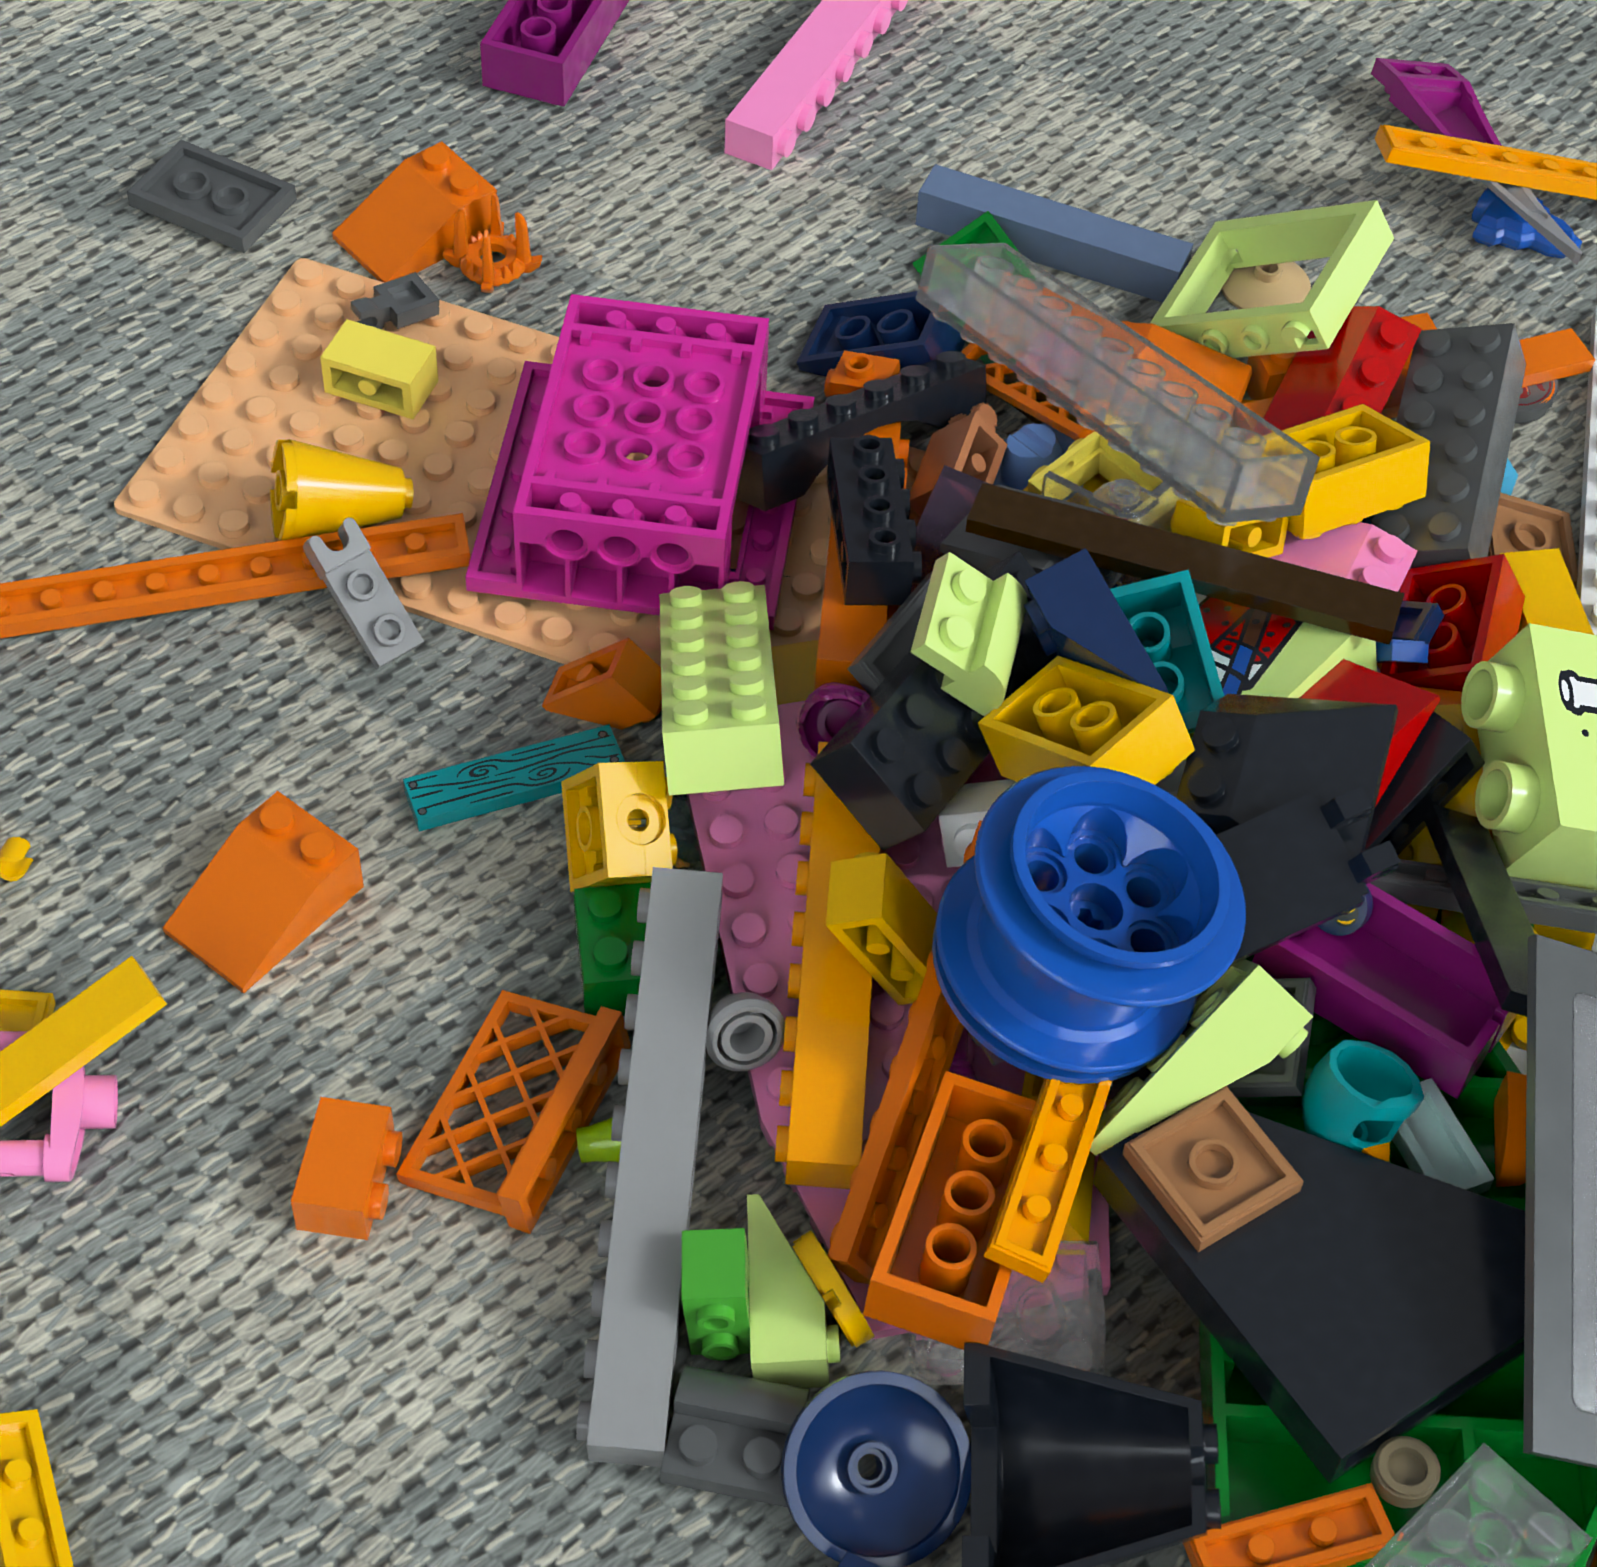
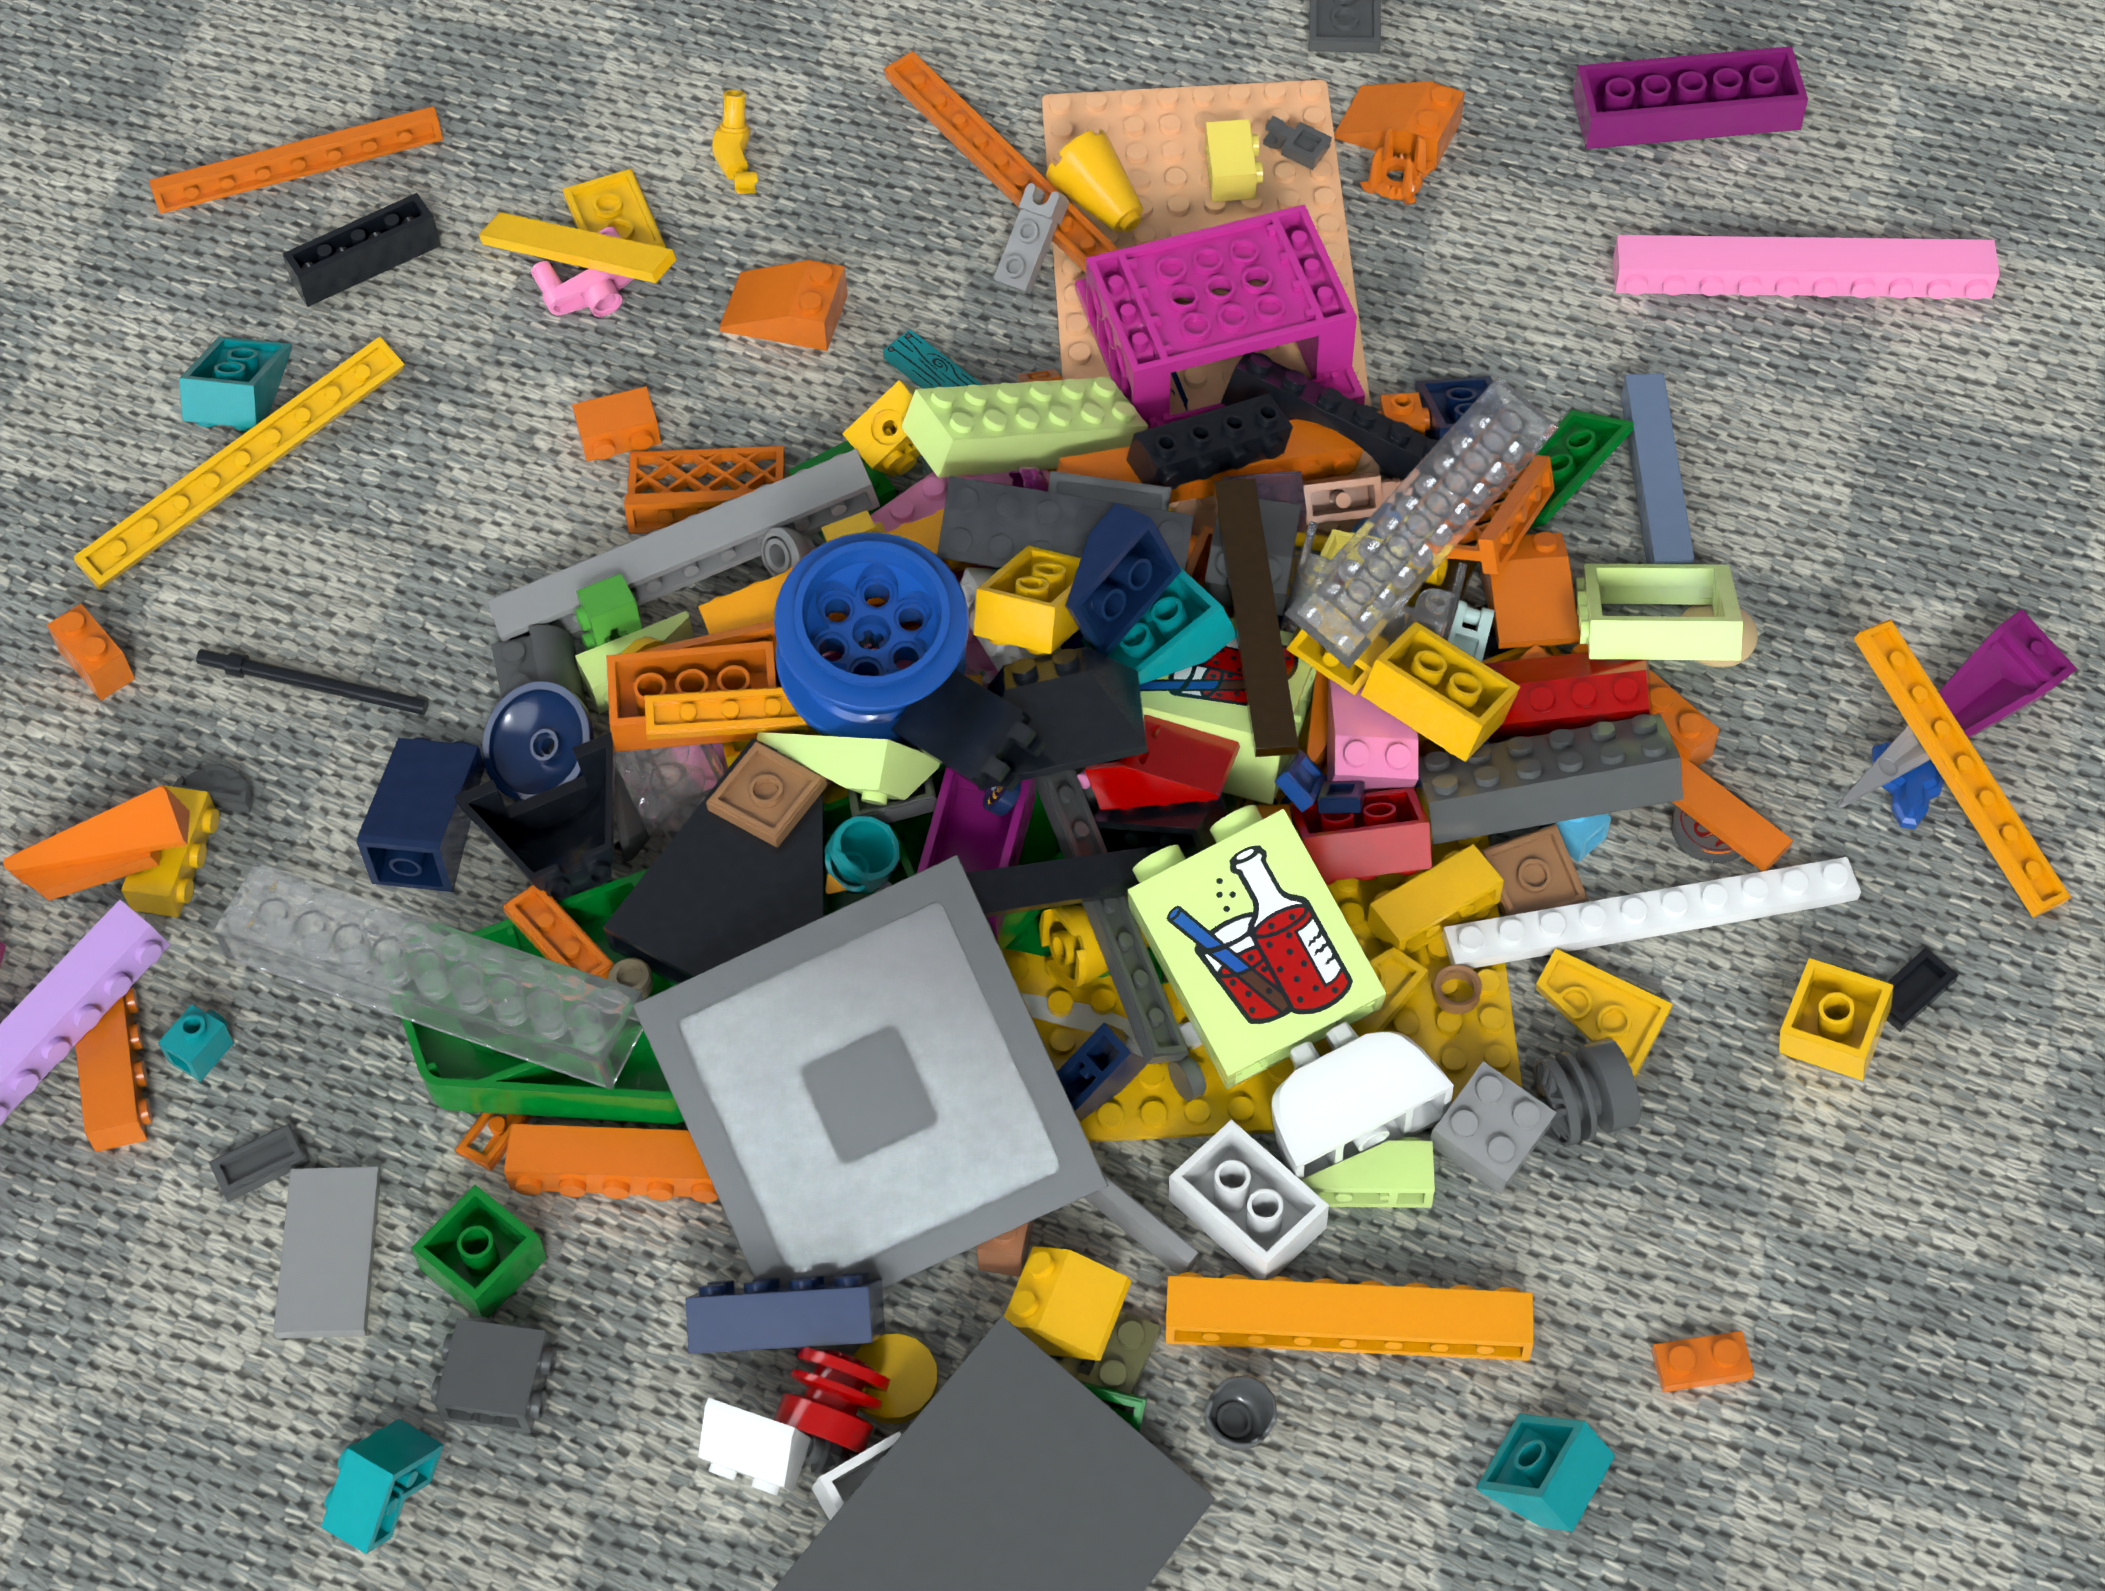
camera: 70 degrees right, 5 degrees up
(970, 631) = (1071, 498): yellowish green brick -> none

